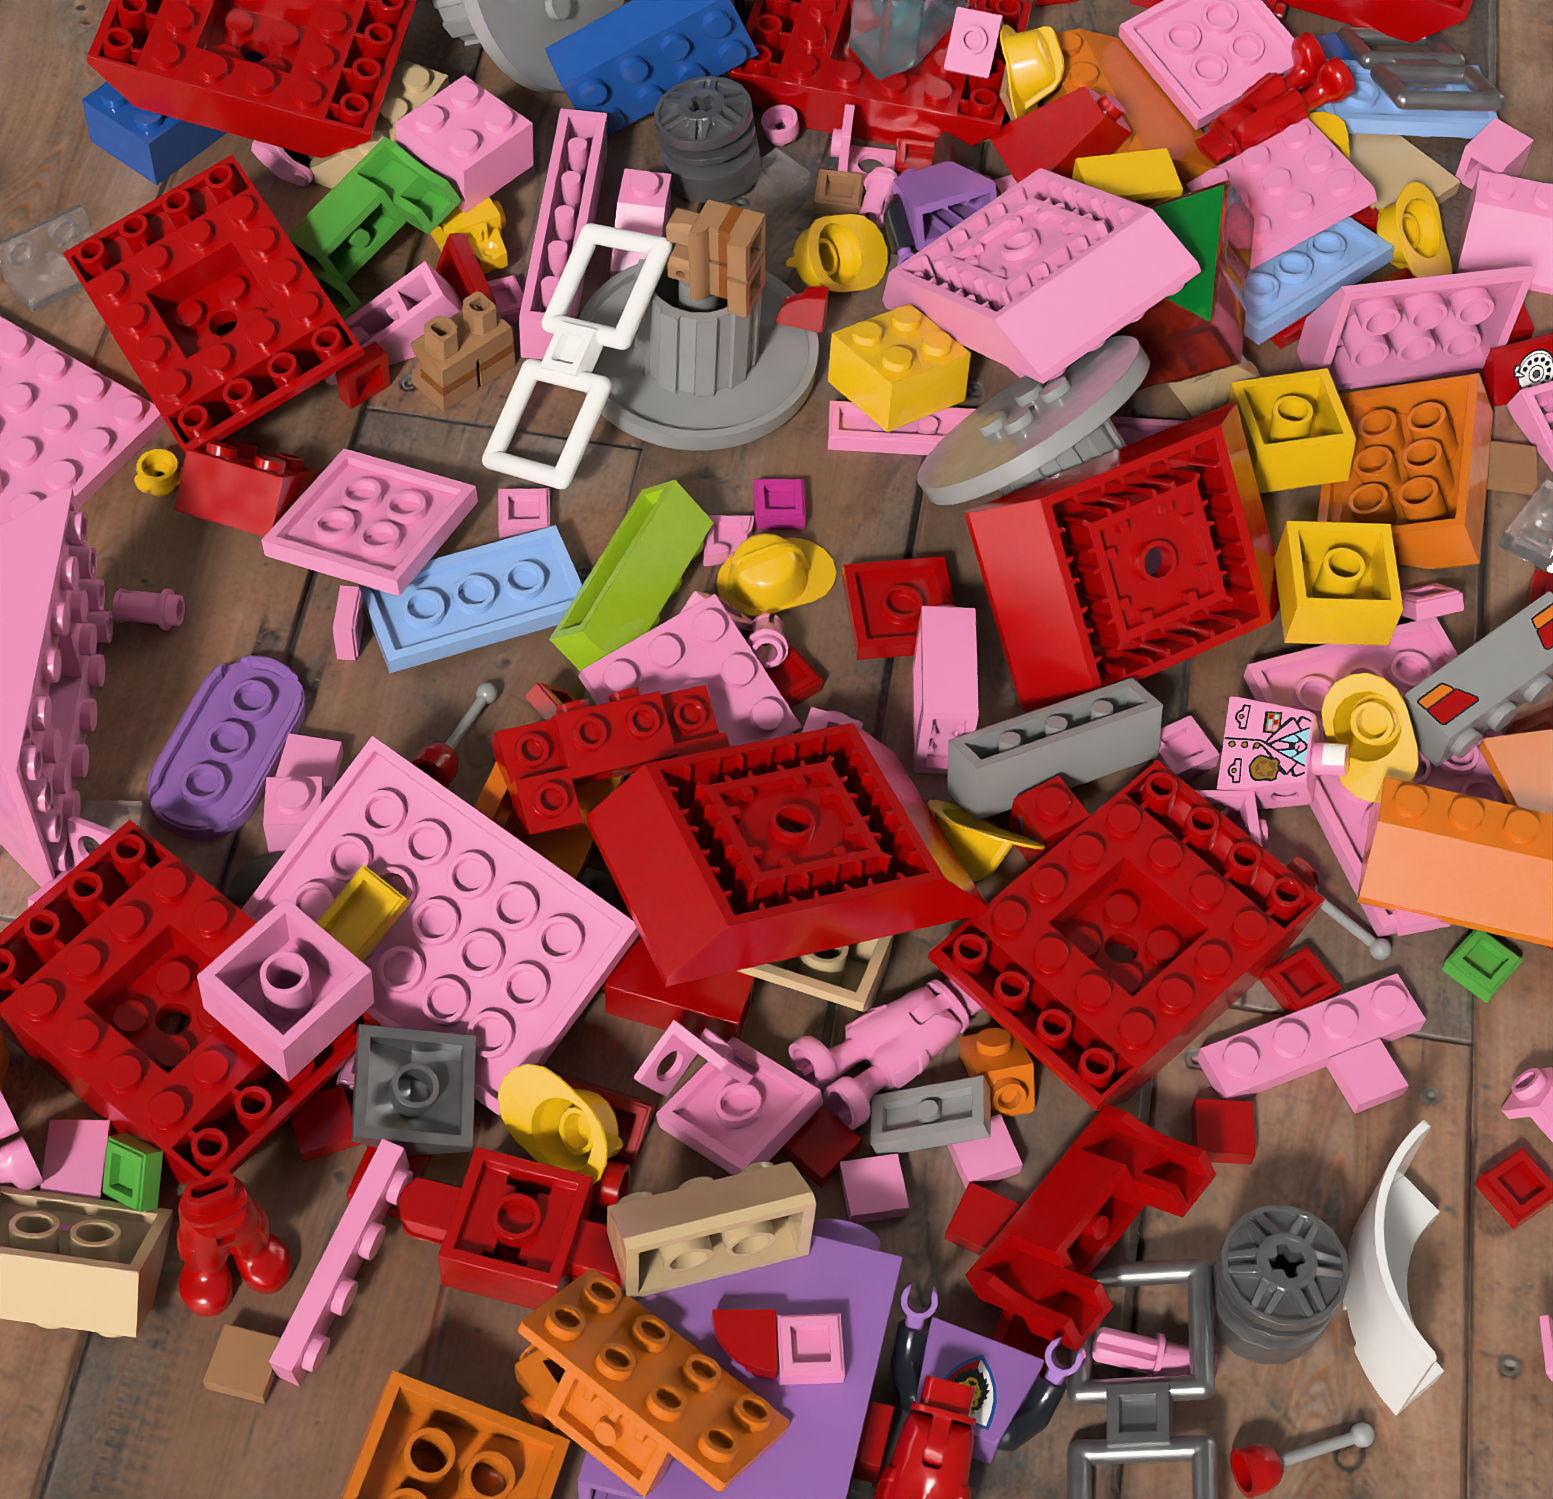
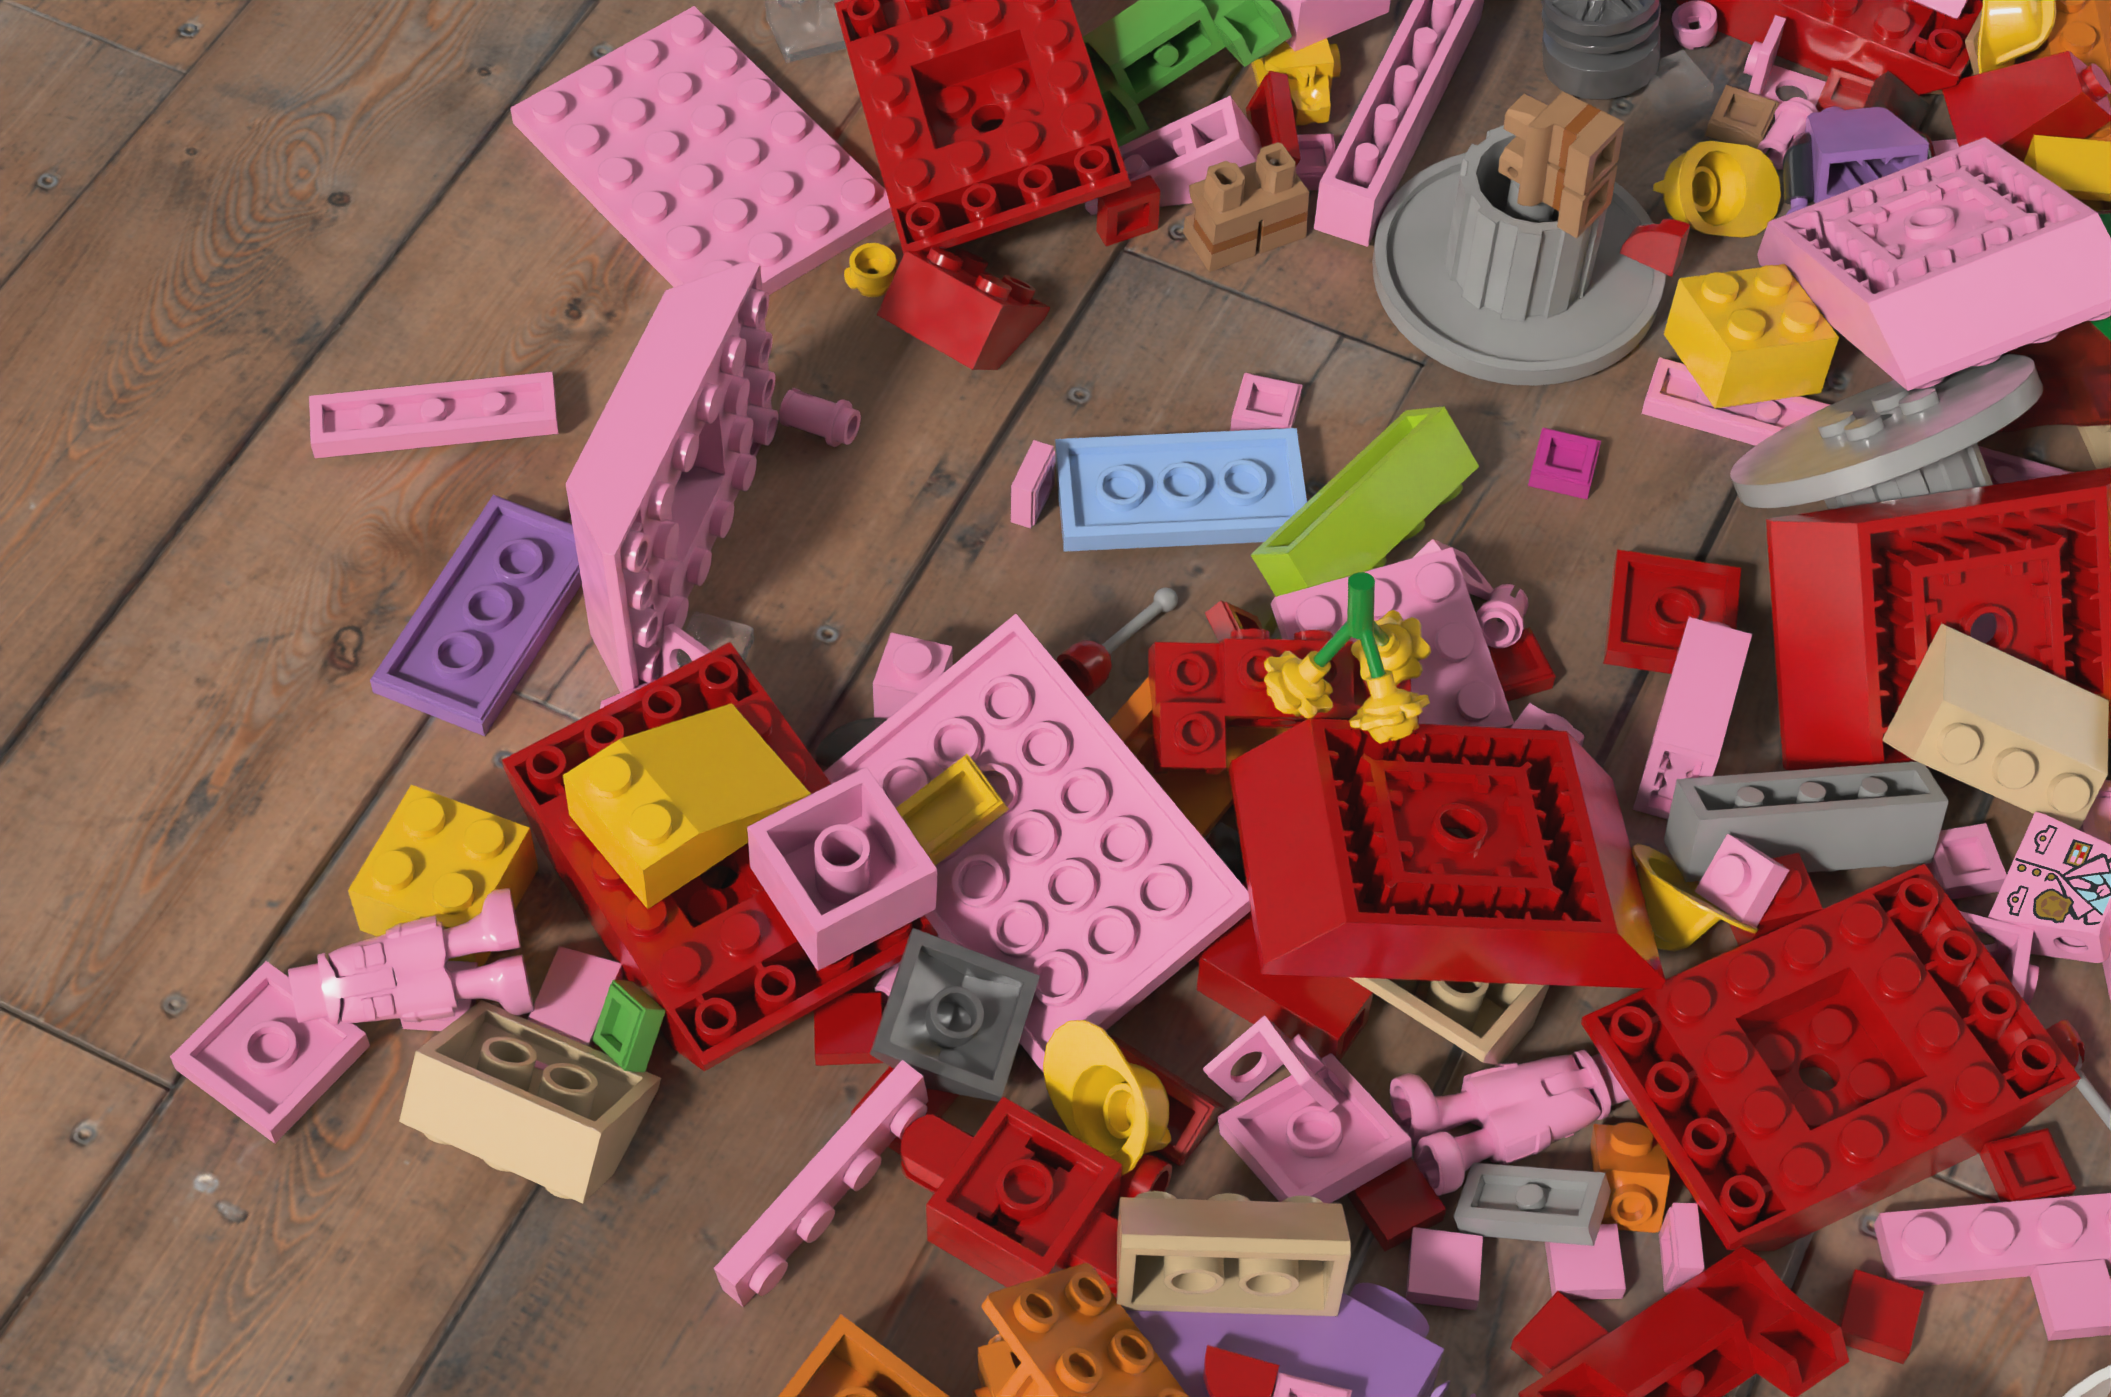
camera: 20 degrees right, 0 degrees up
(125, 966) = (678, 798): none -> yellow slope
(219, 1221) = (696, 1103): red piece -> none
(226, 748) = (858, 588): medium lavender tile -> none
(242, 1364) = (686, 1264): medium nougat tile -> none
(311, 757) = (950, 624): bright pink tile -> none
(370, 521) = (1089, 376): bright pink plate -> none
(574, 354) = (1370, 236): white bar -> none
(641, 208) = (1496, 84): bright pink slope -> none
(692, 695) = (1387, 655): none -> yellow plant
(725, 537) = (1491, 488): bright pink tile -> none
(775, 574) = (1536, 543): yellow piece -> none
(1022, 809) = (1741, 880): none -> bright pink plate
(1056, 1119) = (1680, 1245): none -> bright pink tile
(1188, 635) = (2004, 728): none -> tan slope

